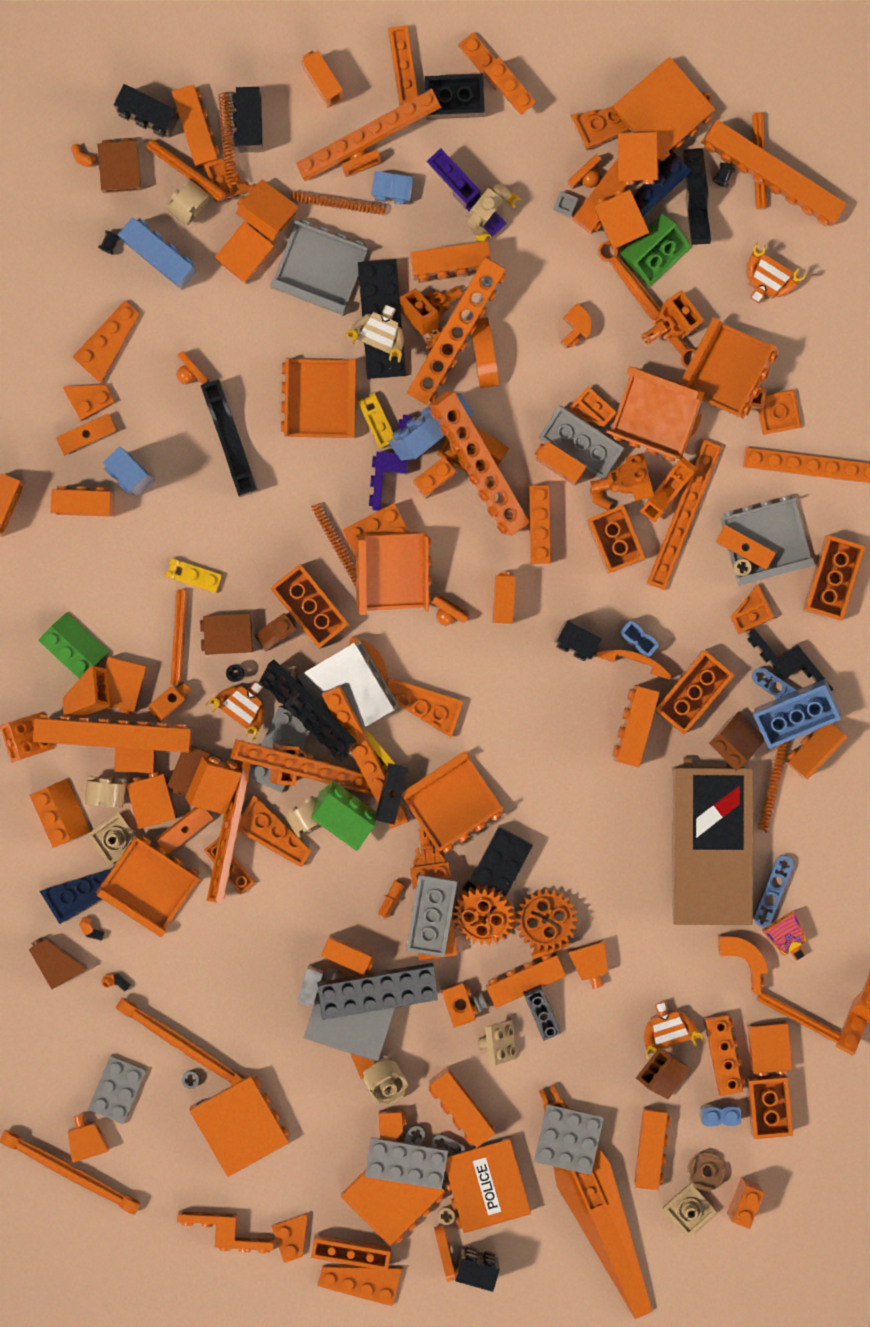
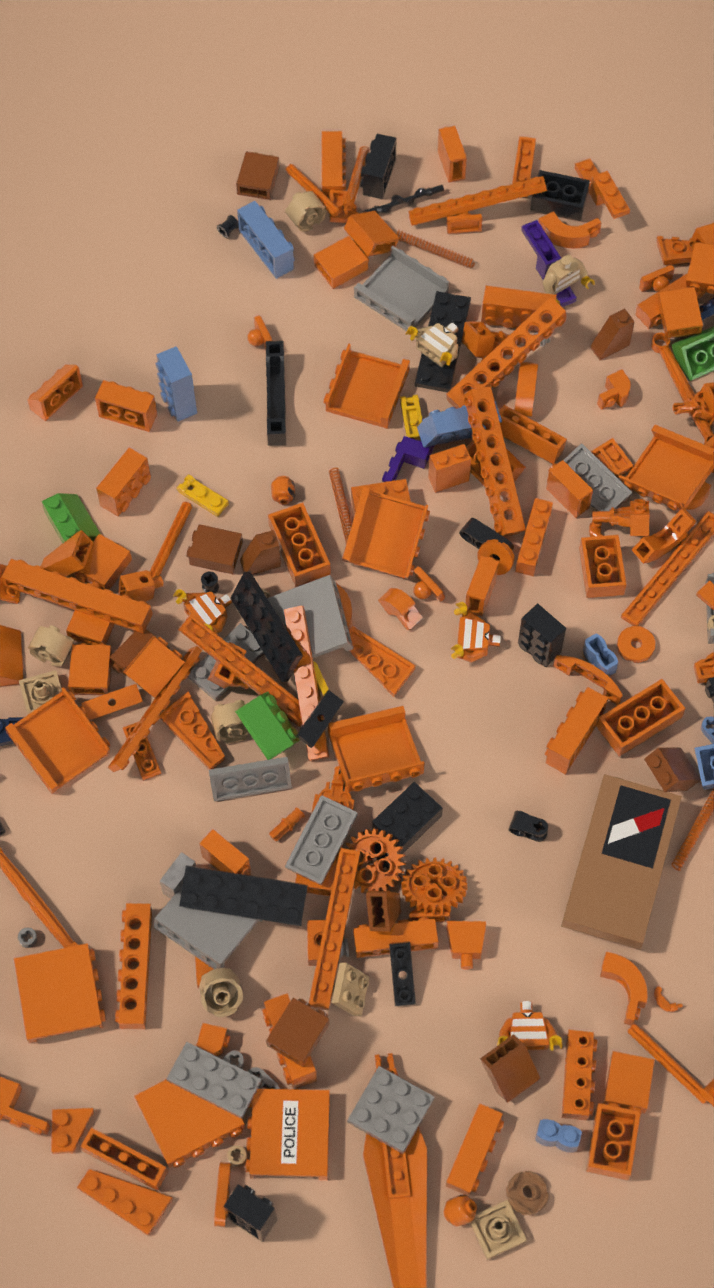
camera: 15 degrees right, 25 degrees down
(75, 438) = (141, 360): orange tile -> none
(81, 158) = (230, 164): orange arm -> none
(88, 399) = (164, 336): orange wing -> none
(103, 346) = (189, 302): orange wing -> none
(112, 591) = (123, 482): none -> orange brick
(146, 111) = (295, 139): black brick -> none
(272, 546) = (283, 489): none -> orange head
(291, 149) = (396, 199): none -> black piece
(317, 1123) = (136, 1017): none -> orange brick
(343, 870) = (250, 779): none -> light grey plate
(392, 187) = (485, 247): medium blue brick -> none
(429, 643) = (402, 605): none -> orange brick
(469, 145) = (569, 236): none -> orange arch
(469, 994) = (334, 929): none -> orange plate
(469, 1107) = (298, 1031): none -> dark orange brick
(492, 541) = (477, 533): none -> black beam
(504, 409) = (531, 435): none -> orange brick
(508, 562) = (502, 550): none -> orange tile
(508, 963) = (383, 909): none -> dark orange slope
(510, 654) = (472, 636): none -> torso
(557, 265) = (614, 335): none -> dark orange slope
(565, 204) = (632, 298): light grey plate -> none
(613, 833) = (526, 826): none -> black piece
(653, 1205) = (460, 1210): none -> orange head
(680, 610) = (639, 634): none -> orange tile
(745, 1203) = (560, 1234): orange brick -> none
(770, 890) = (670, 927): medium blue beam -> none
(782, 963) = (663, 1003): none -> orange piece
(787, 935) = (675, 974): torso -> none

